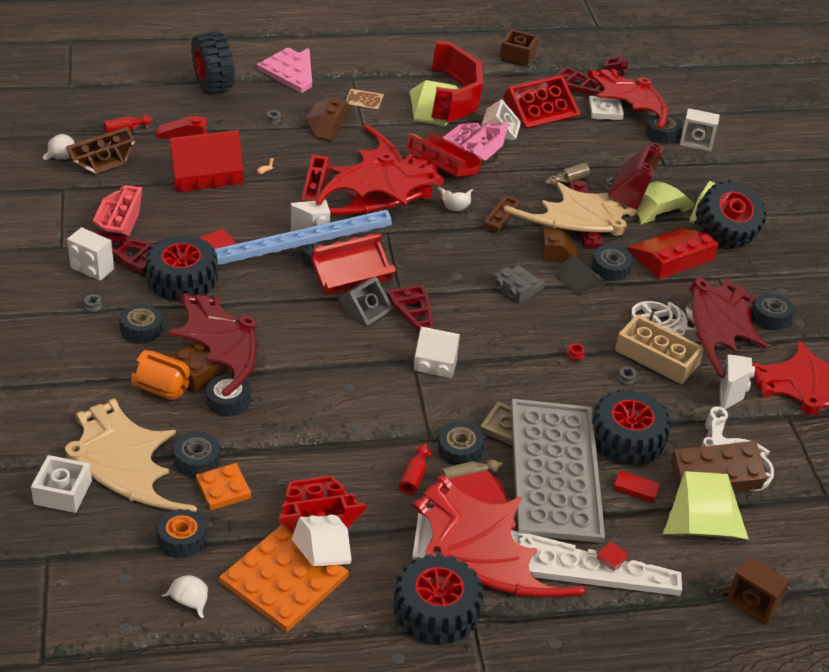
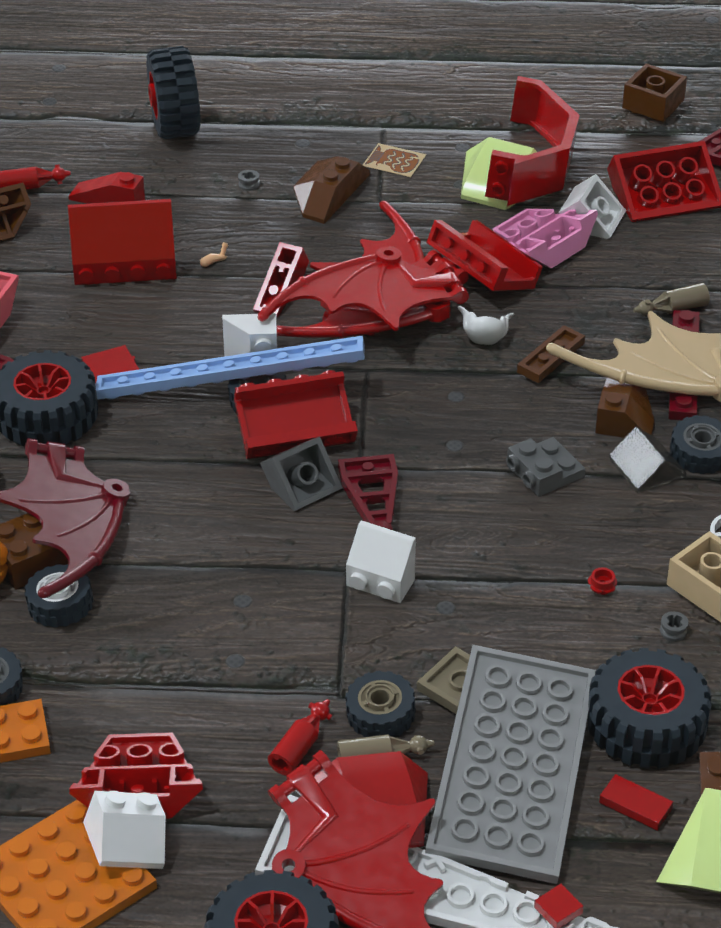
camera: 15 degrees right, 0 degrees up
(289, 68) = (294, 106): bright pink wing -> none

